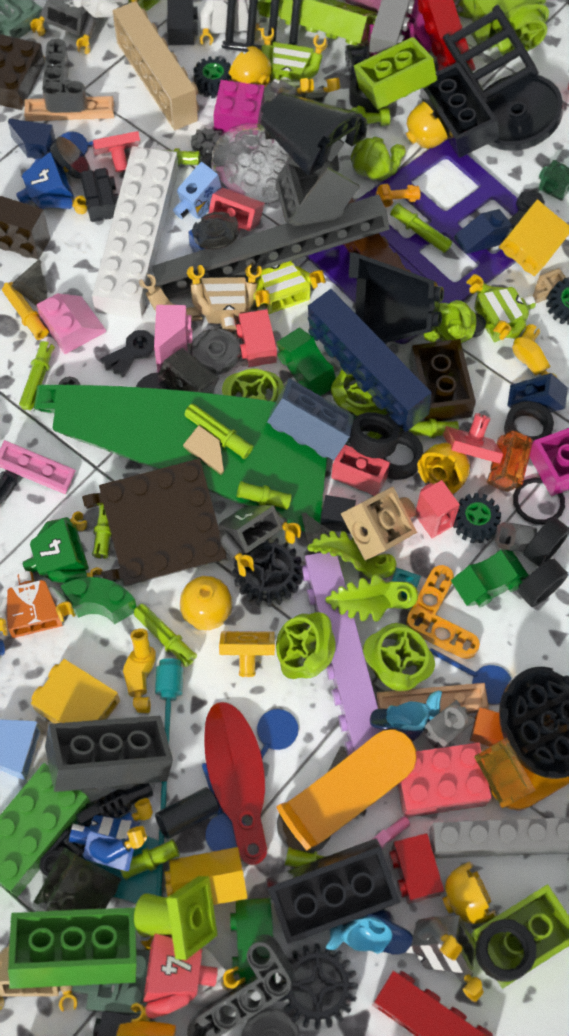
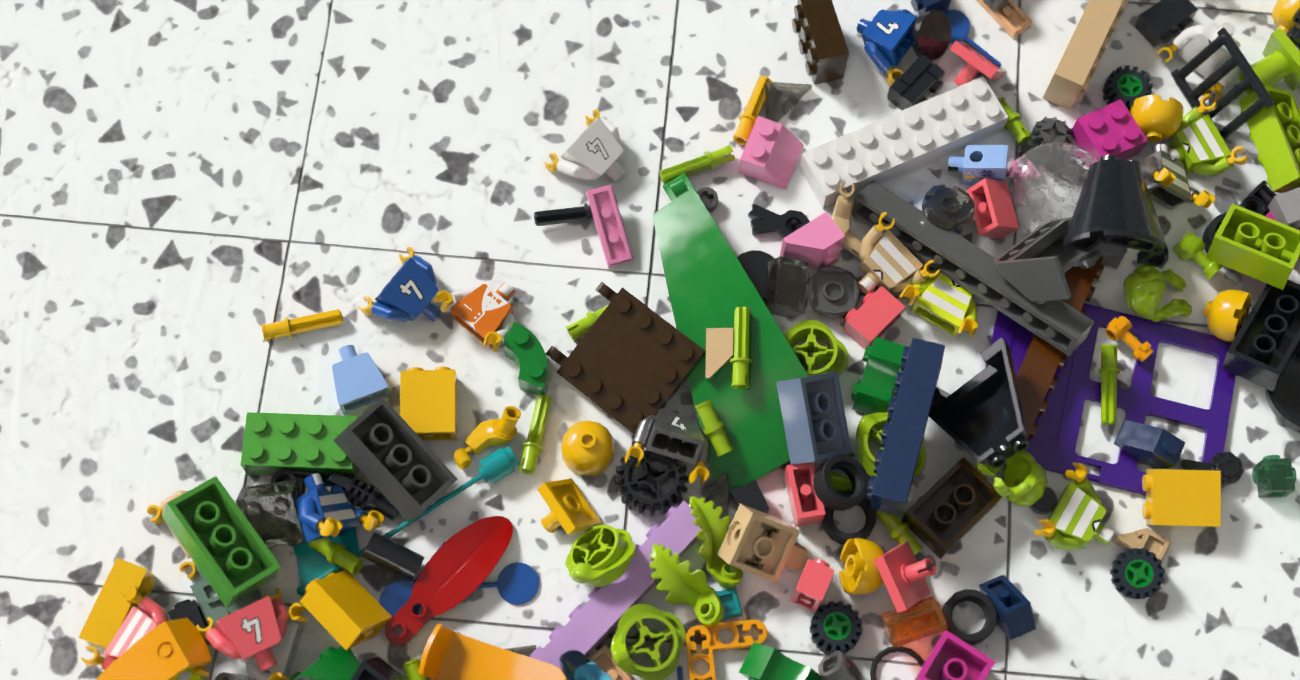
camera: 55 degrees right, 5 degrees up
(59, 551) = (547, 299): green torso -> none
(184, 914) = (294, 609): lime plant -> none
(530, 352) = (1046, 571): yellow arm -> none

